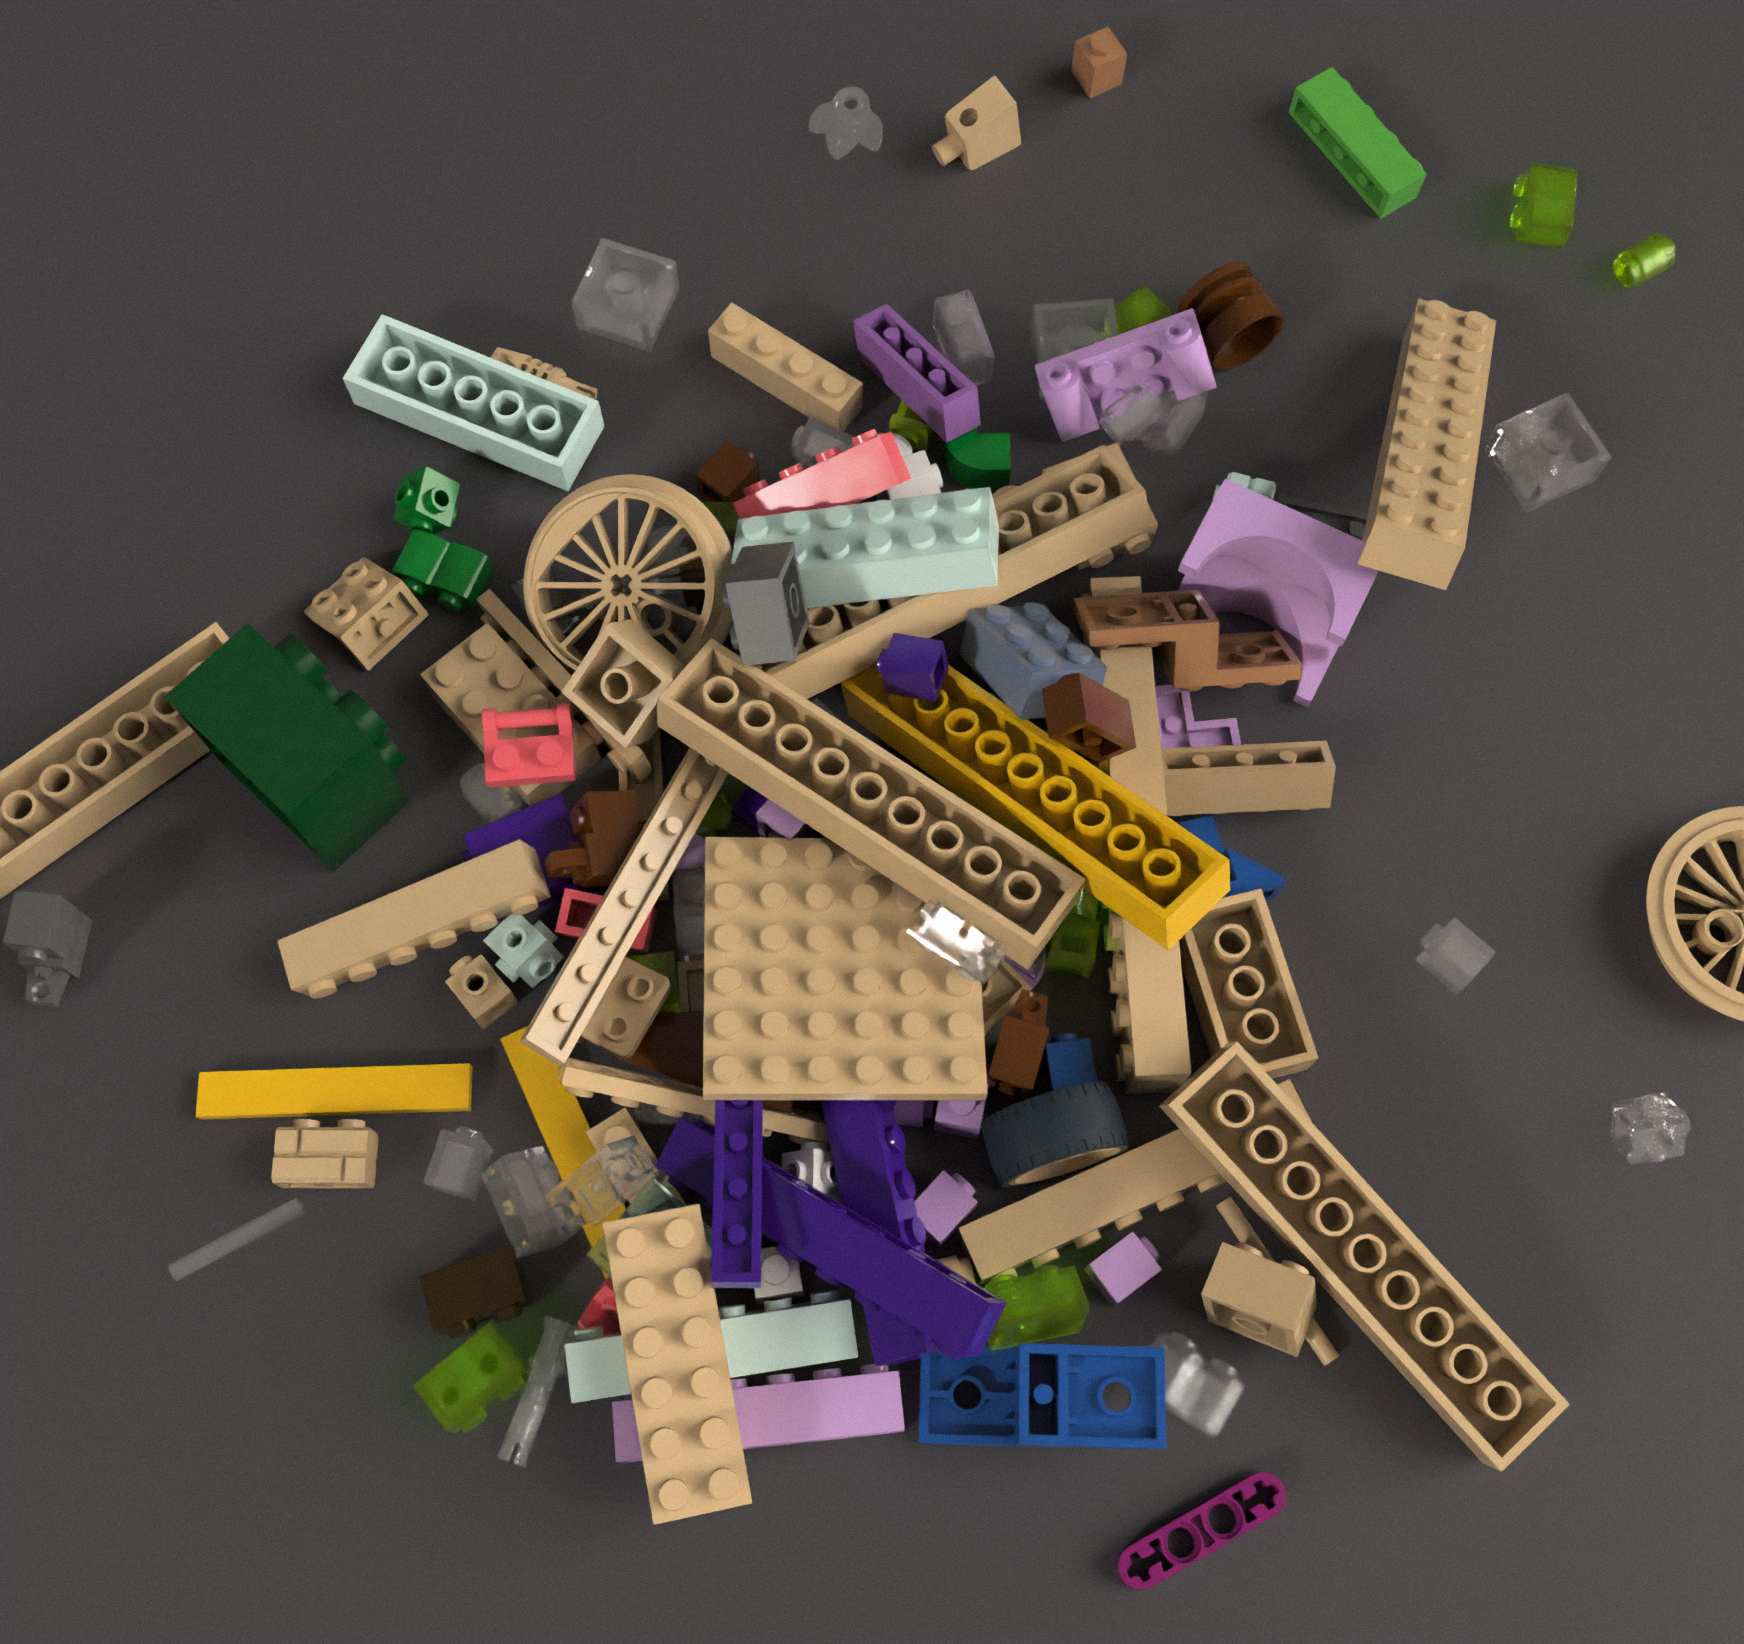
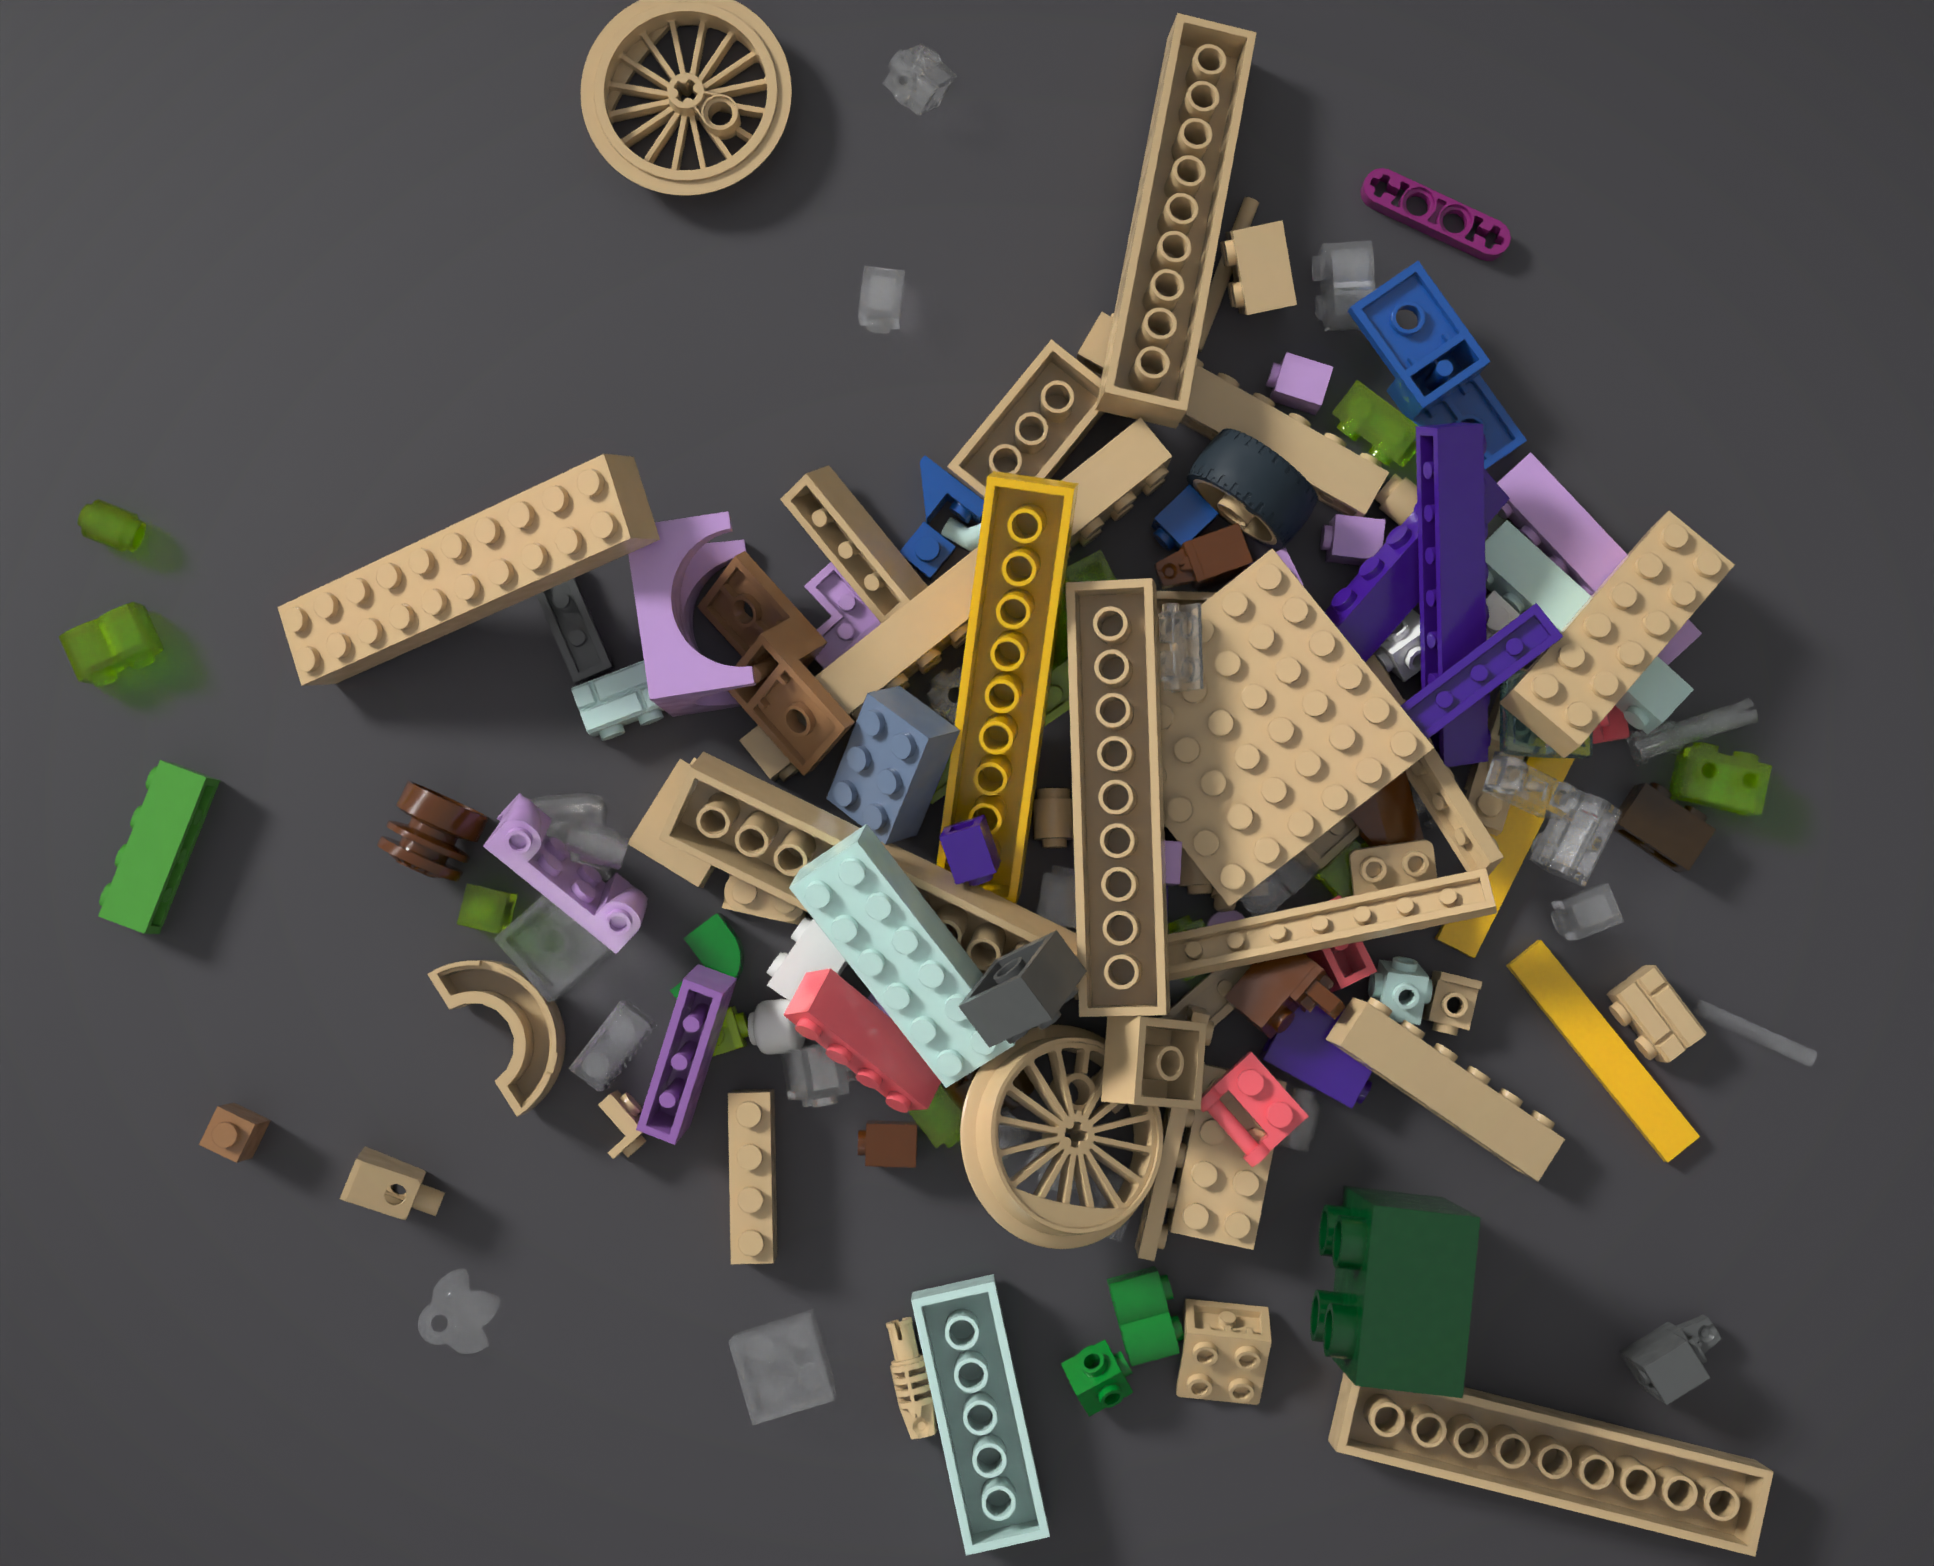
camera: 125 degrees left, 15 degrees up
(911, 308) = (624, 1113): none -> tan bracket
(1011, 288) = (532, 1020): none -> tan brick
(1088, 717) = (923, 676): reddish brown brick -> none
(1547, 452) = (377, 489): clear brick -> none

